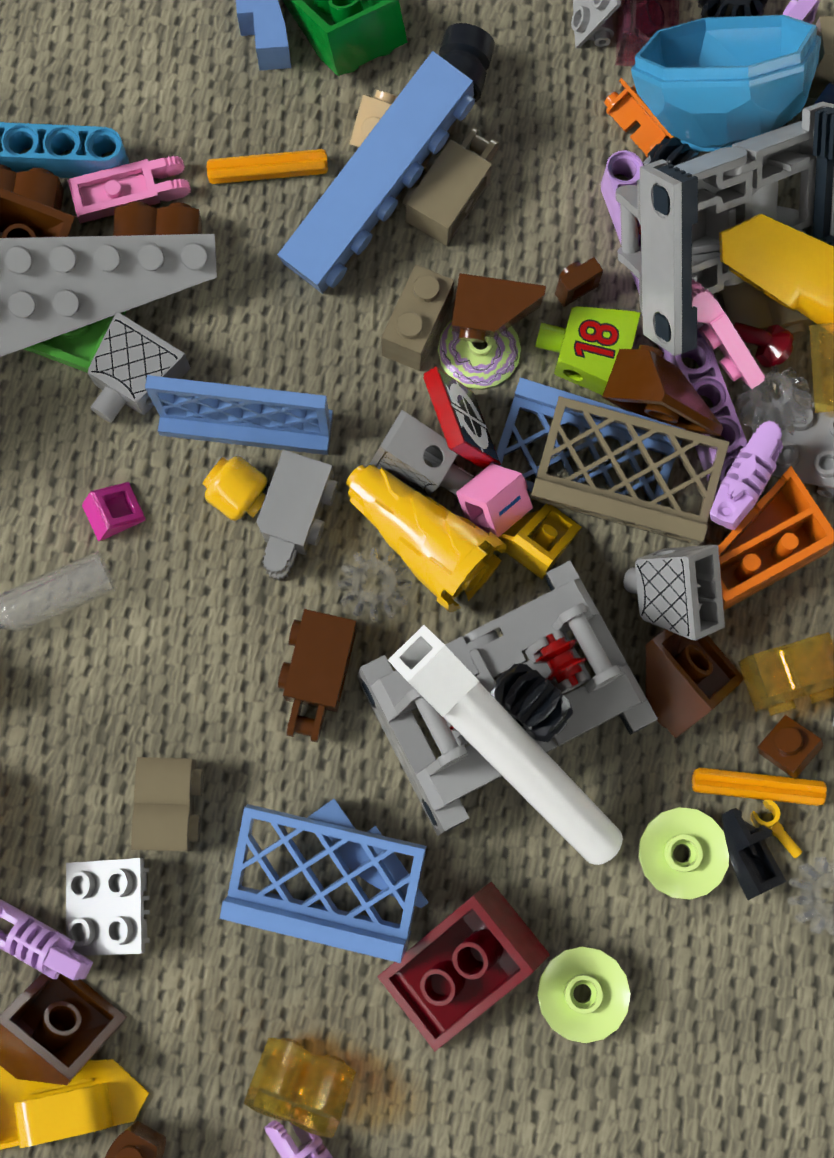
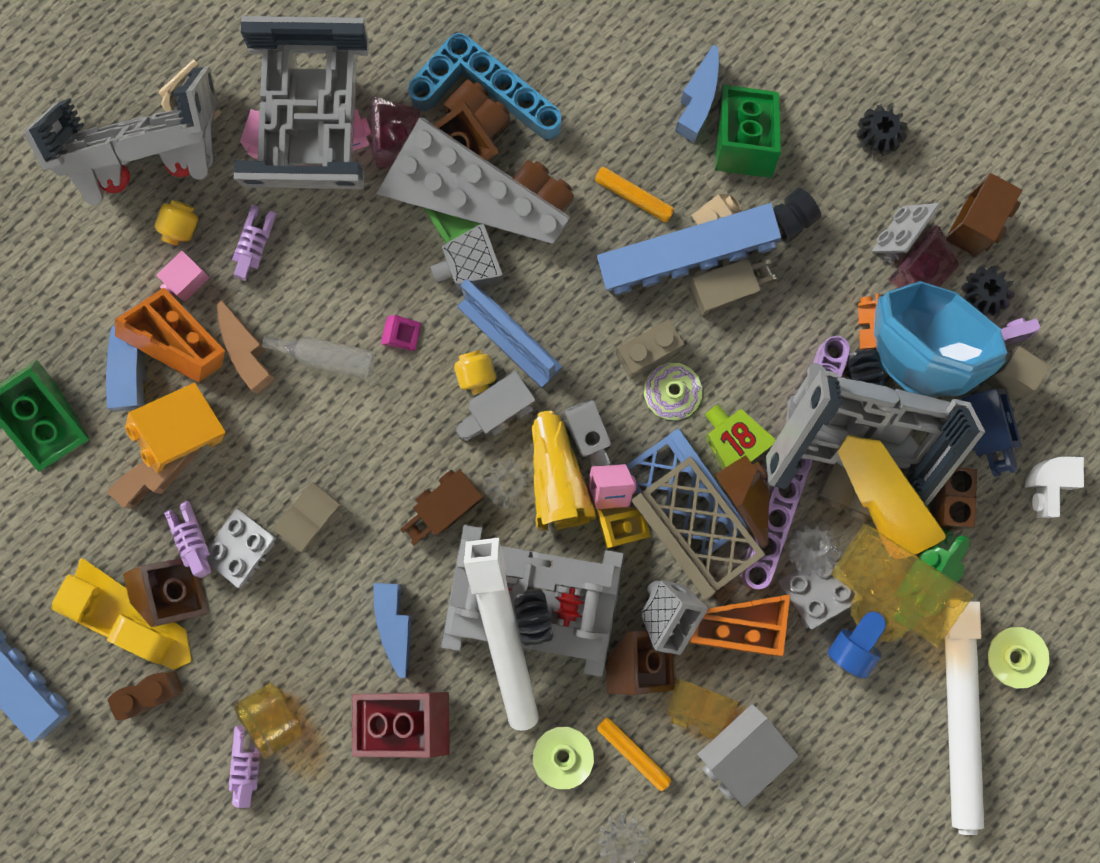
camera: 40 degrees right, 5 degrees up
(100, 192) = (544, 148): bright pink hinge -> none
(314, 921) = (337, 639): medium blue fence -> none
(460, 418) = (626, 427): tile -> none
(492, 305) = (691, 374): reddish brown slope -> none
(578, 280) = (758, 394): reddish brown plate -> none
(607, 1000) = (443, 803): yellowish green dish -> none
(720, 333) = (808, 488): bright pink hinge -> none
(747, 476) = (759, 582): lavender hinge -> none
(750, 855) = (598, 787): black slope -> none
(773, 344) = (838, 517): dark red plate -> none
(777, 828) = (625, 784): yellow hand -> none
(790, 746) = (668, 746): reddish brown plate -> none

